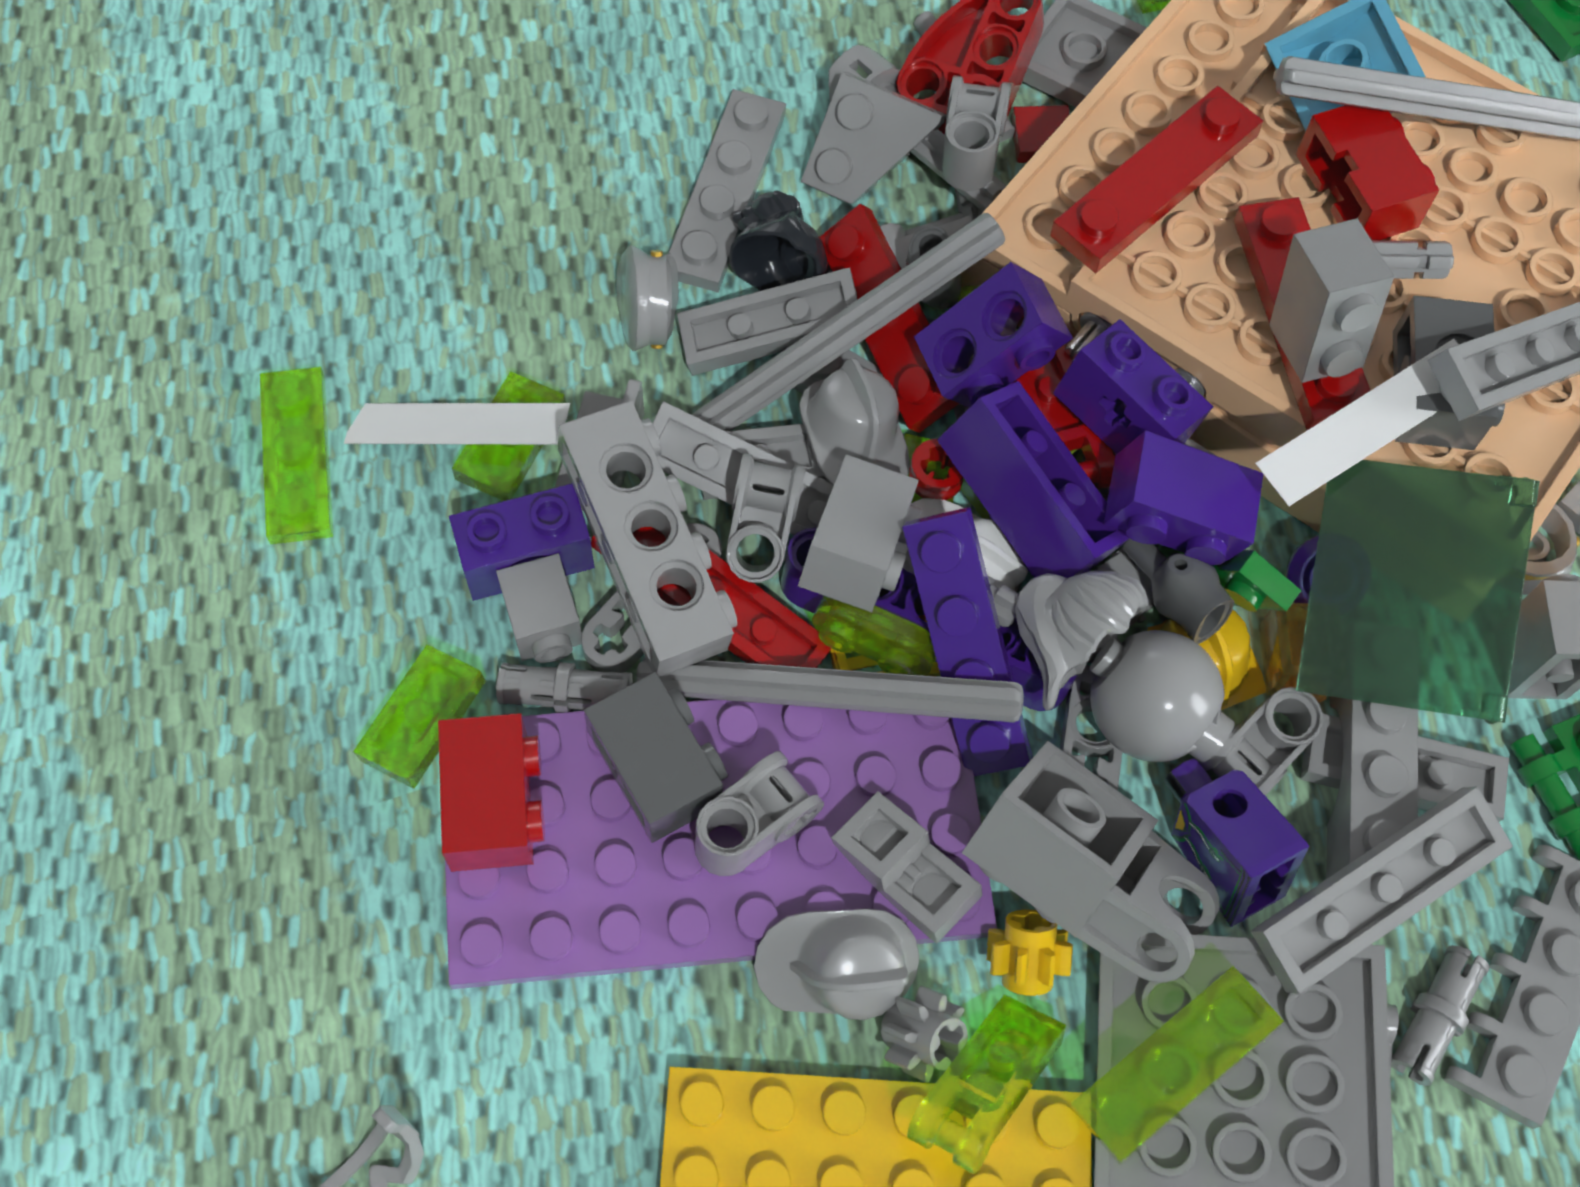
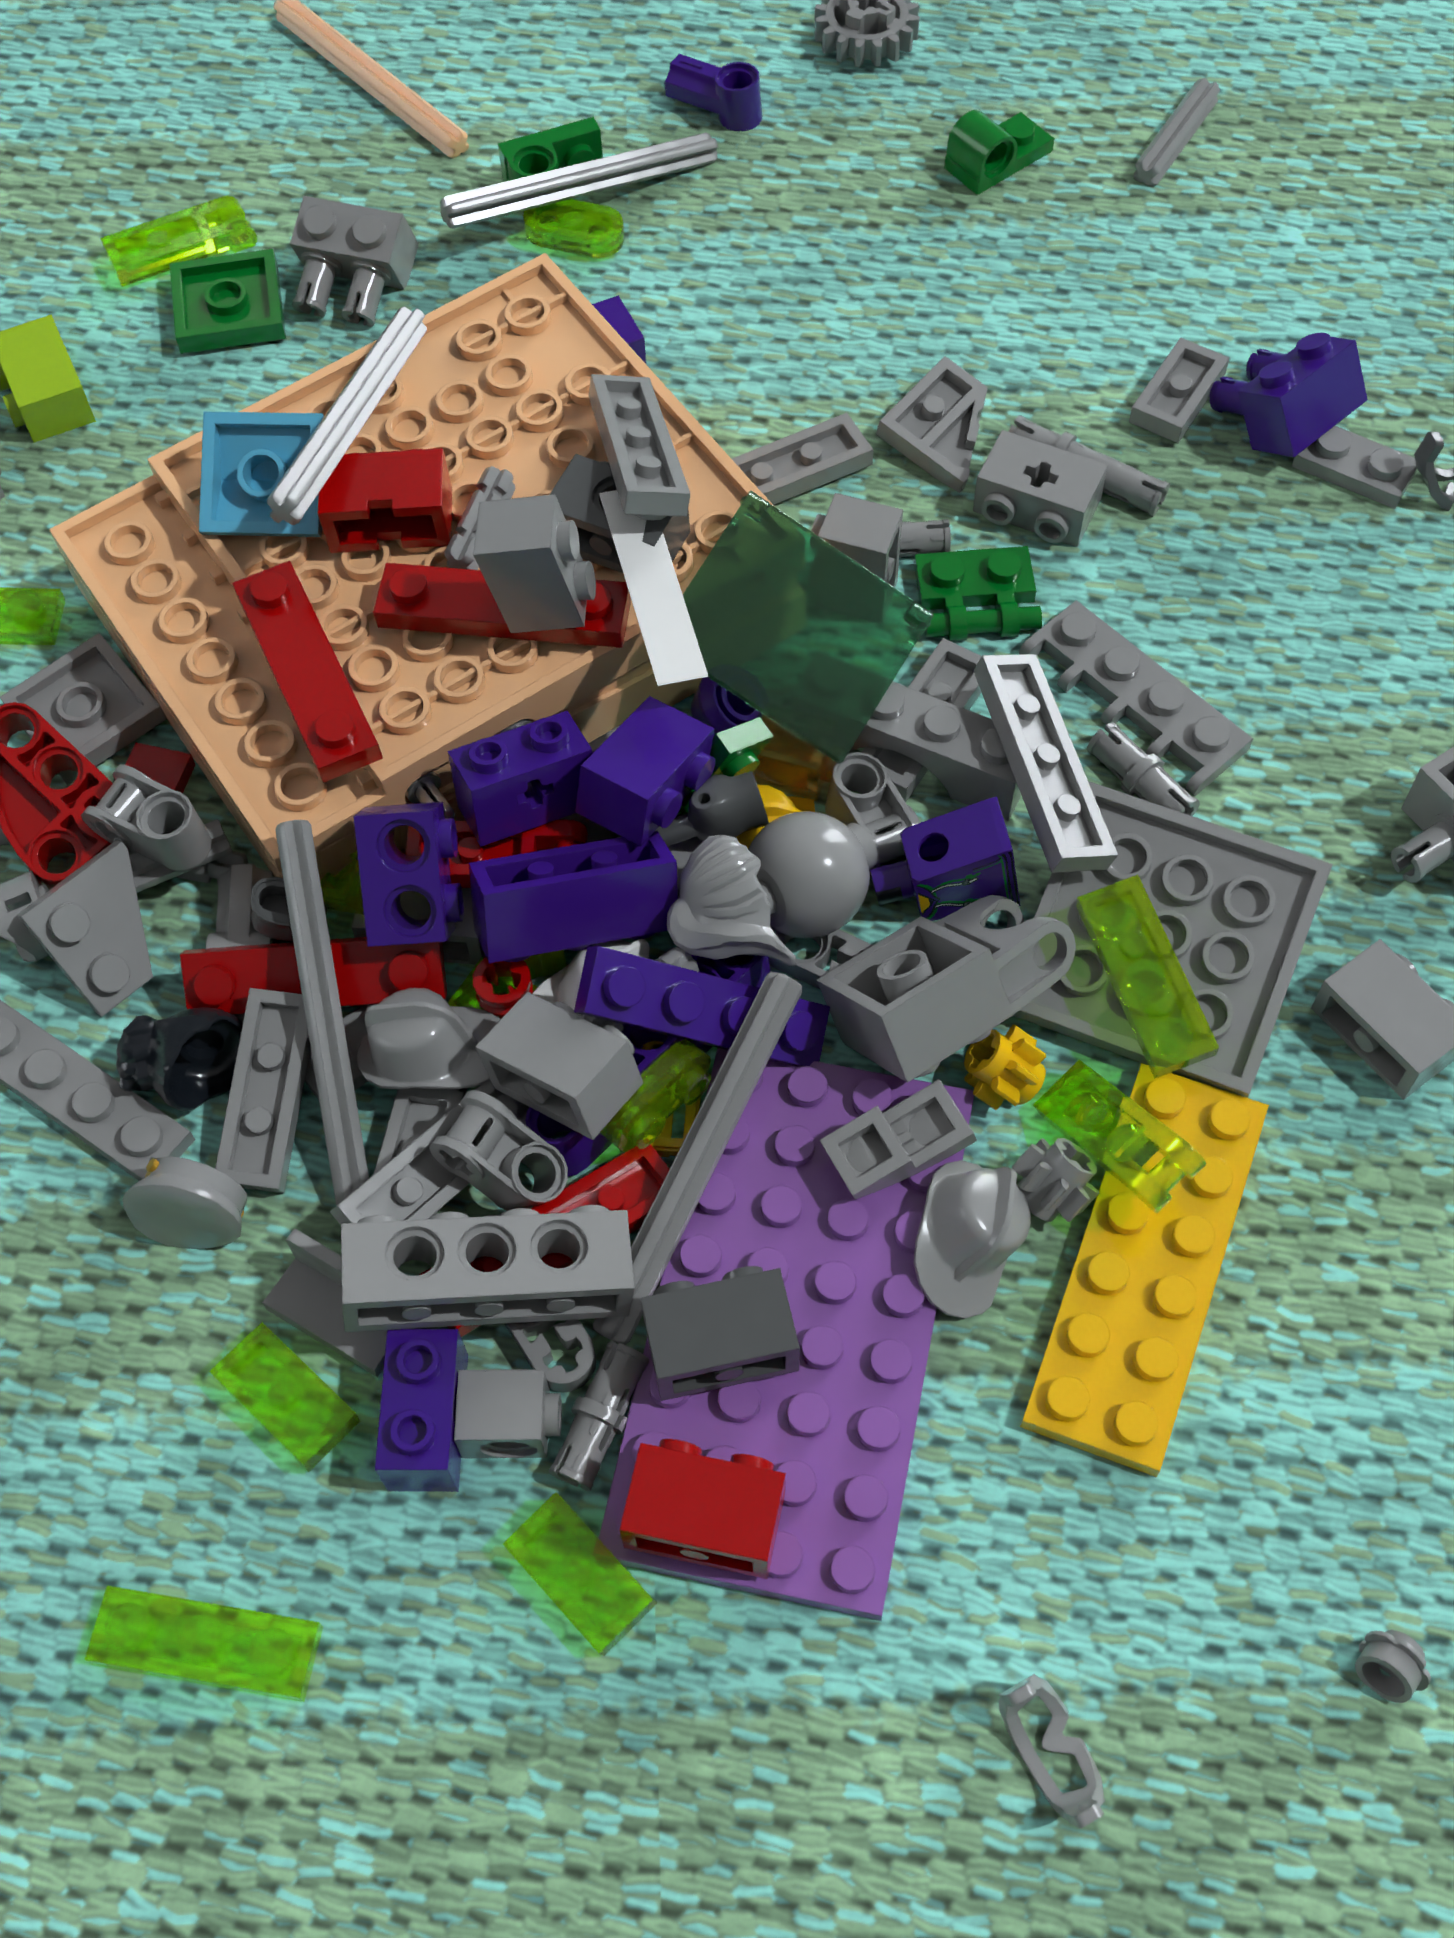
camera: 65 degrees left, 5 degrees down
(458, 423) = (248, 1447): white sticker -> none
(763, 807) = (810, 1250): light grey piece -> none

